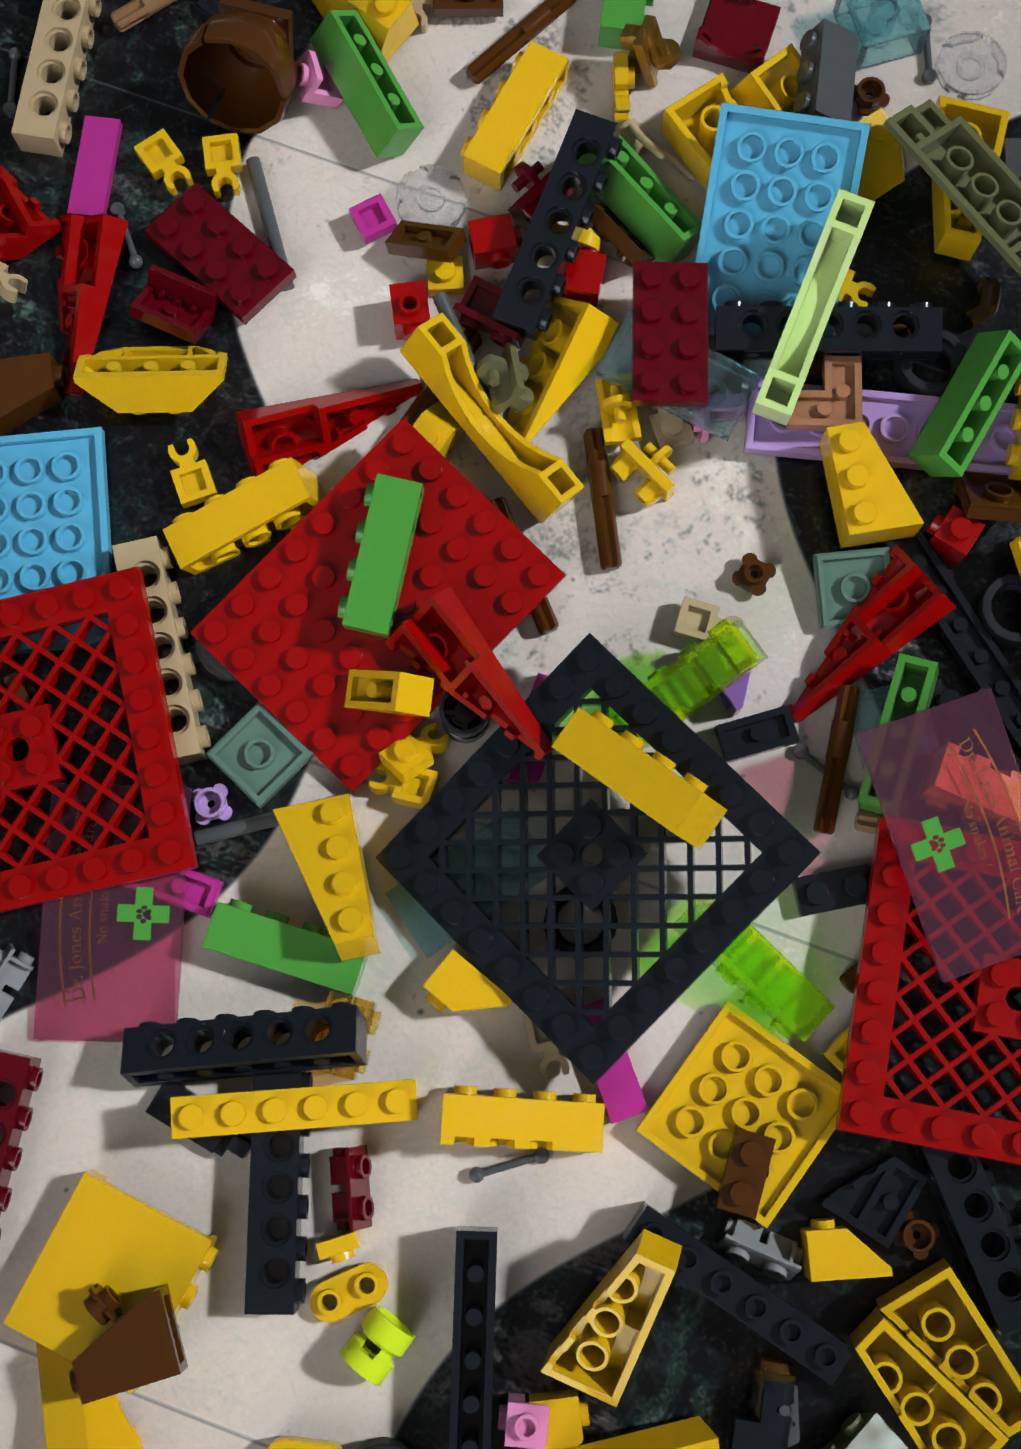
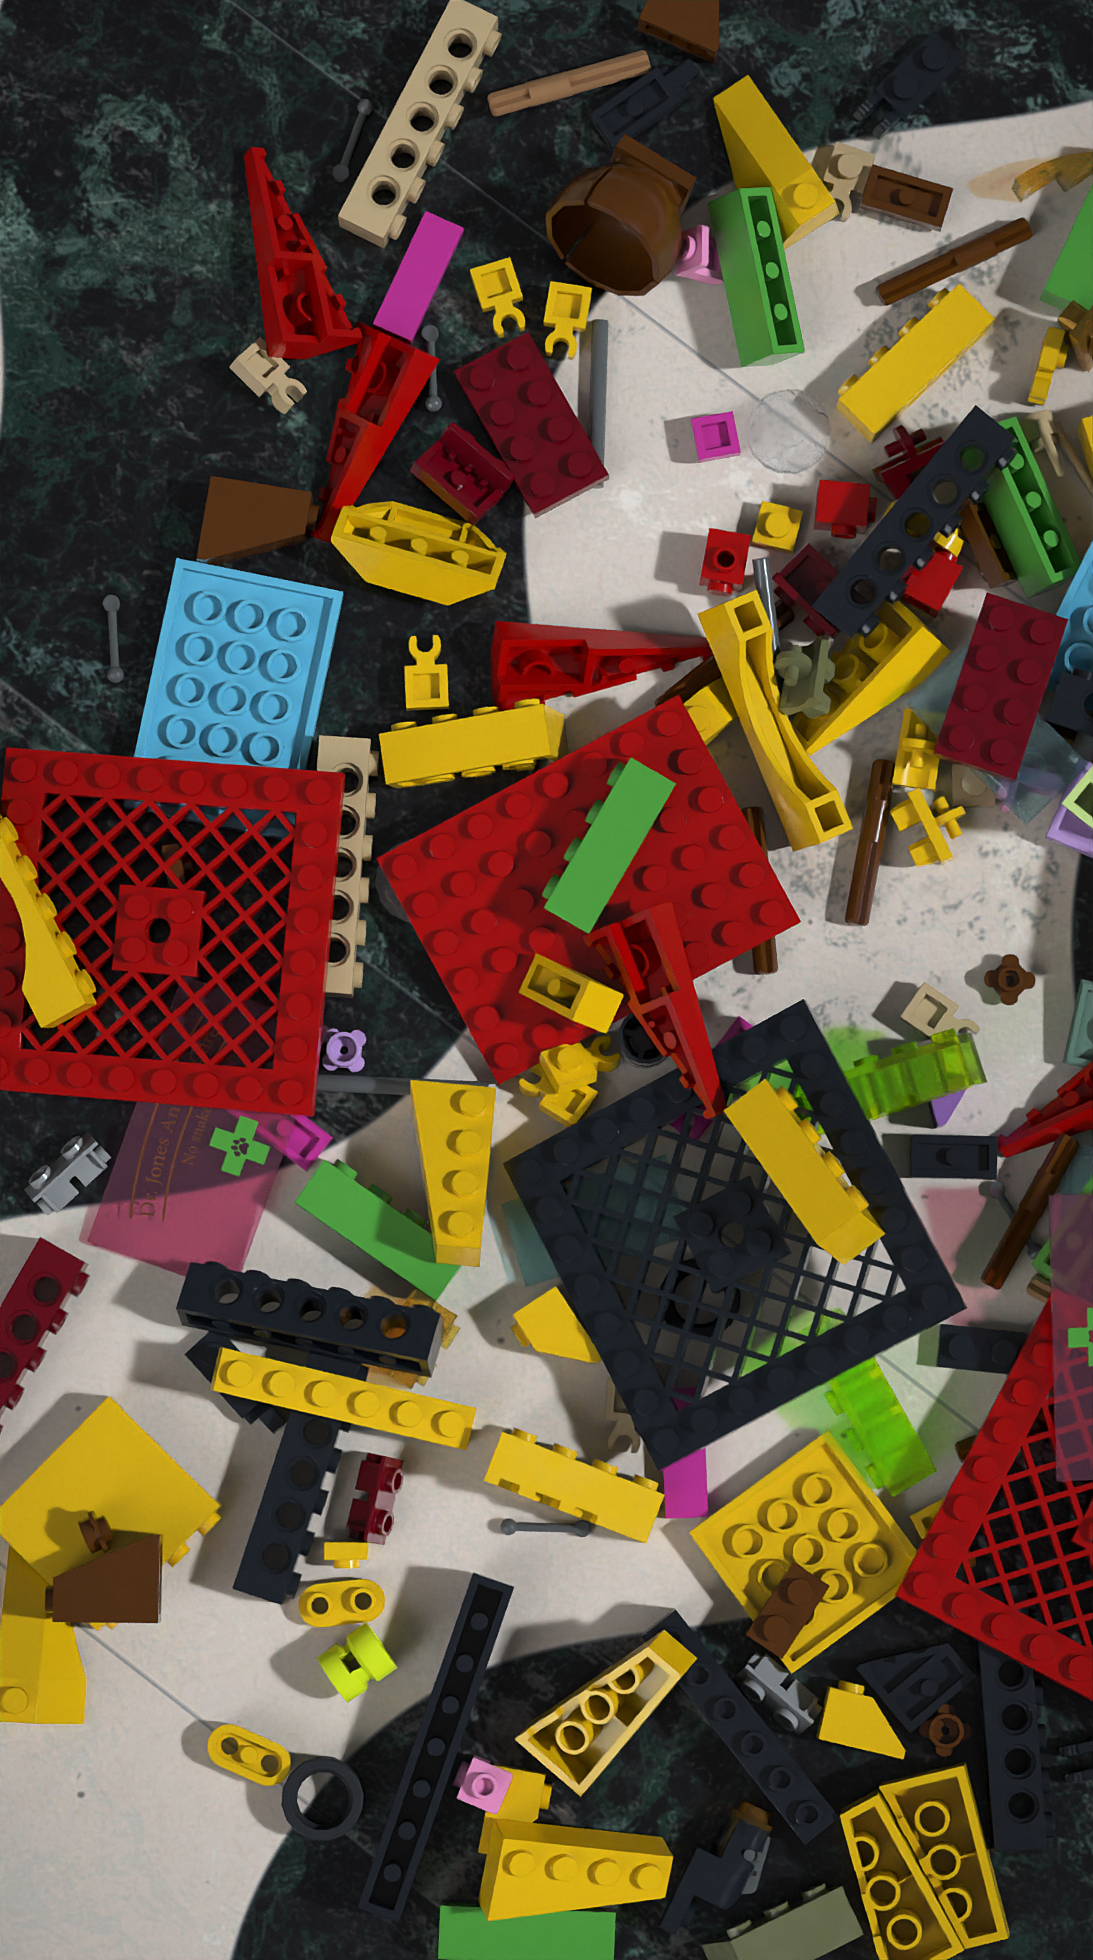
camera: 15 degrees right, 5 degrees up
(259, 754) = (411, 1013): sand green plate -> none
(426, 241) = (766, 485): reddish brown plate -> none

